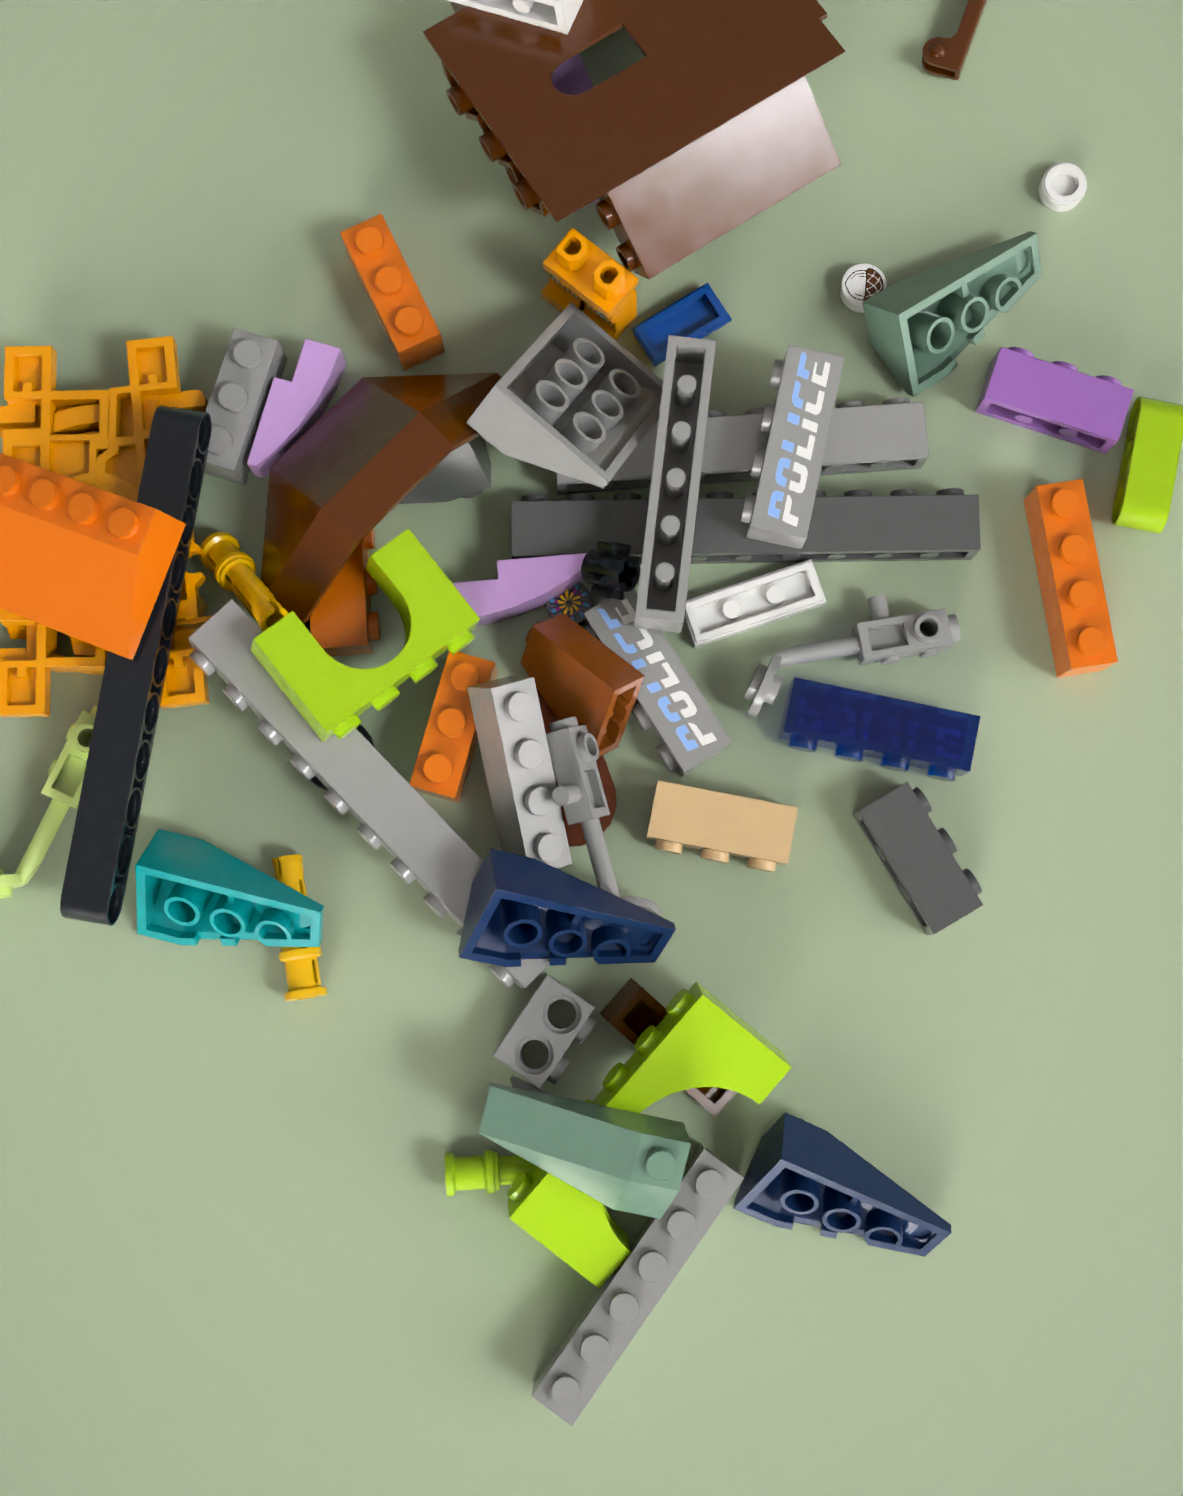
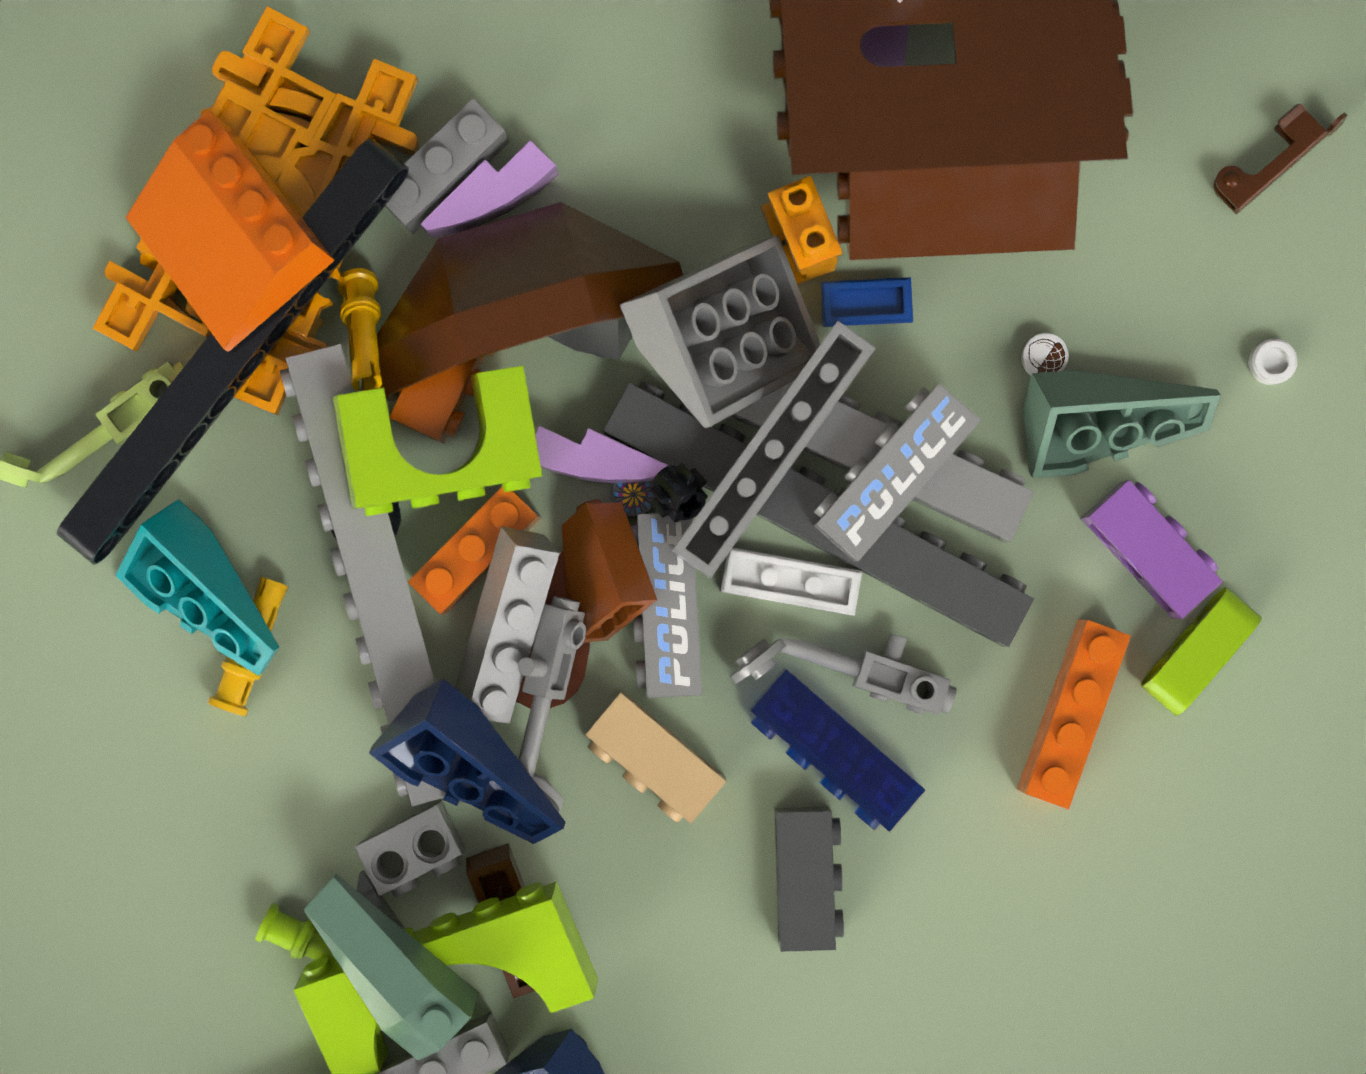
camera: 25 degrees right, 5 degrees up
(392, 292) = (630, 136): orange brick -> none

